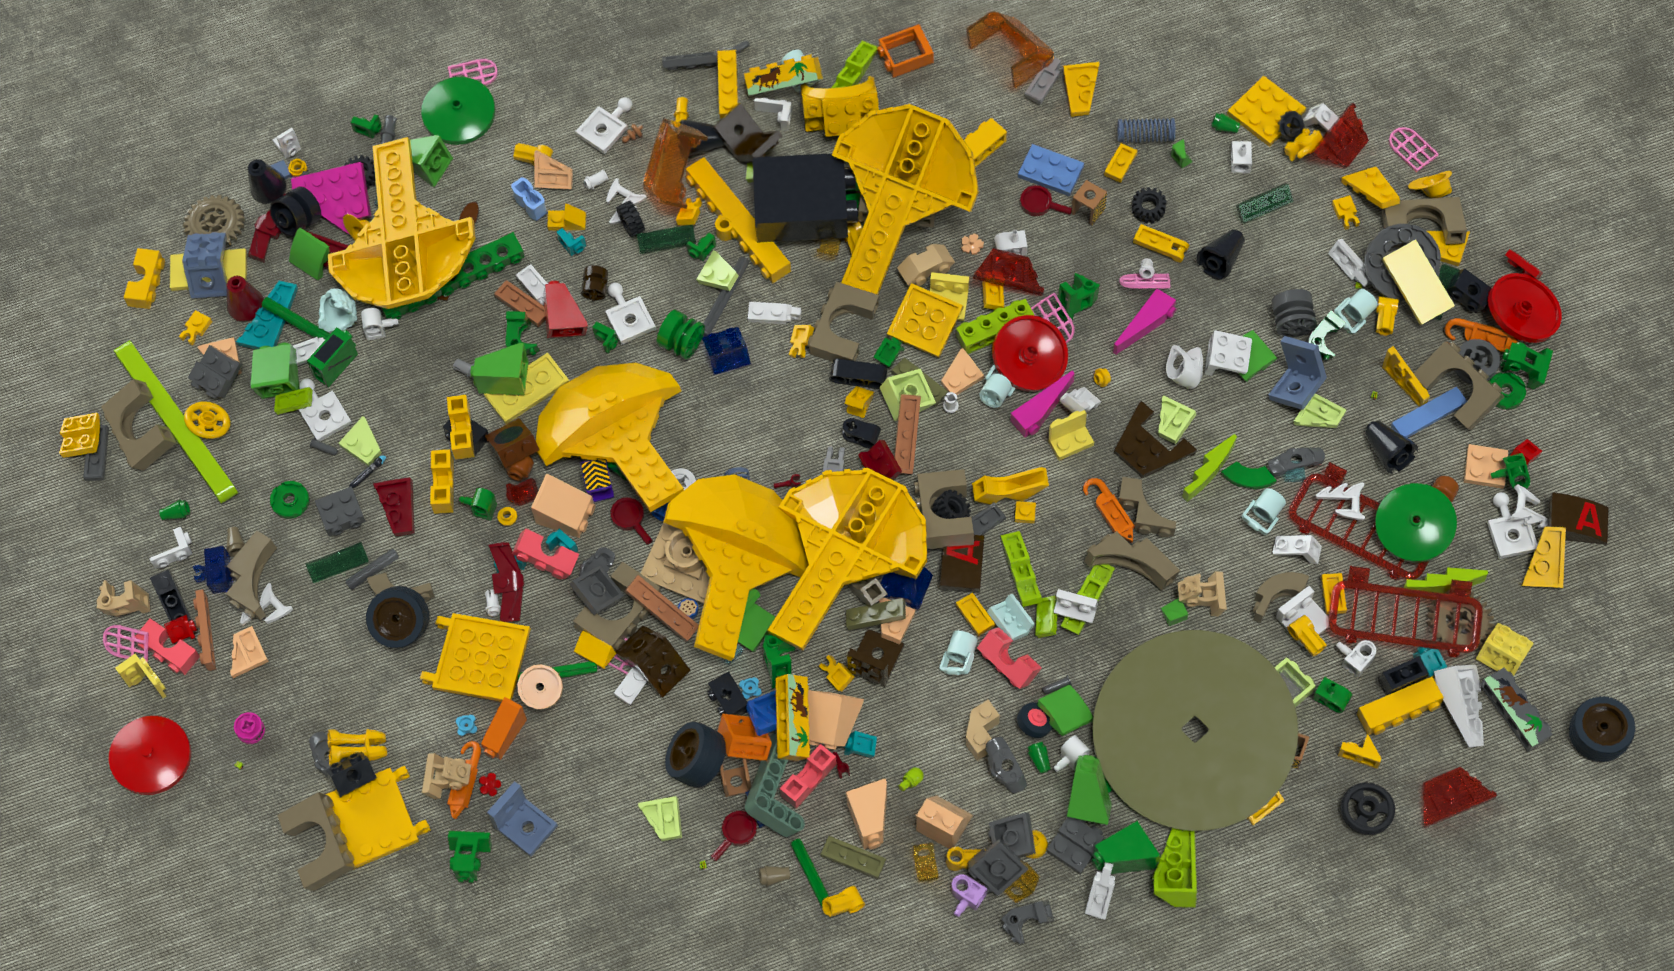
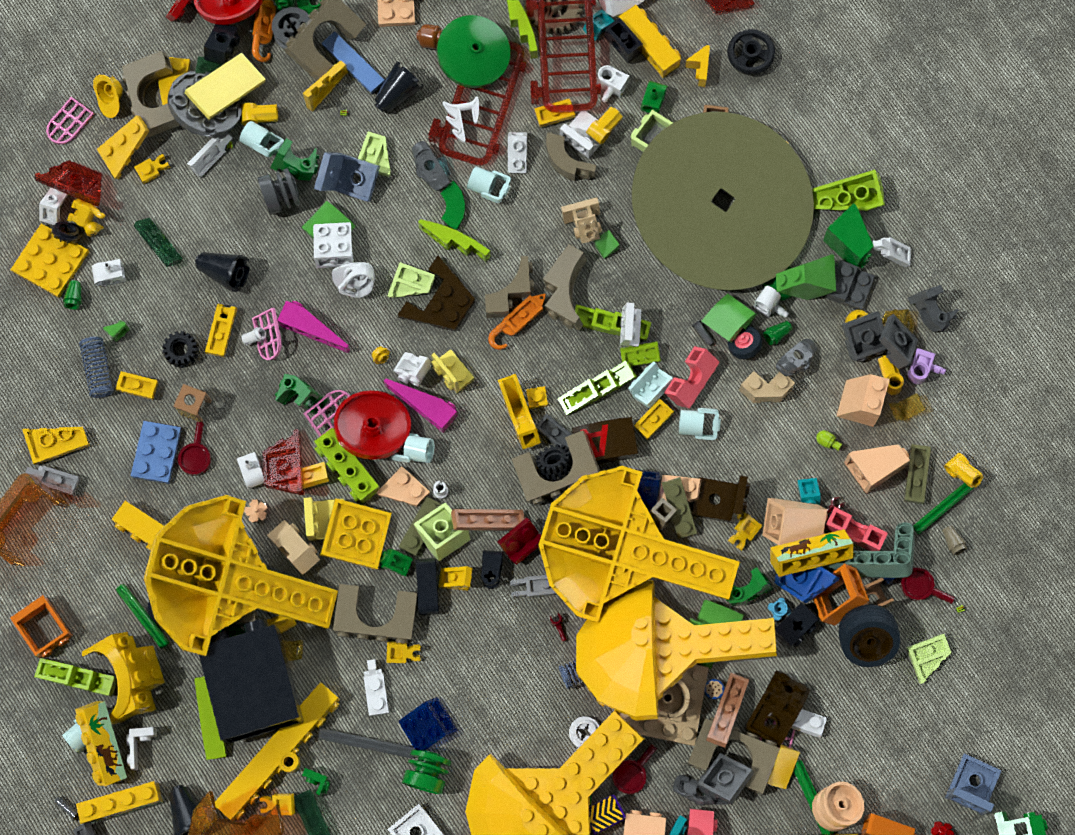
camera: 105 degrees left, 10 degrees up
(717, 273) = (343, 756): yellowish green wing -> none
(750, 141) = (182, 762): dark brown bracket -> none

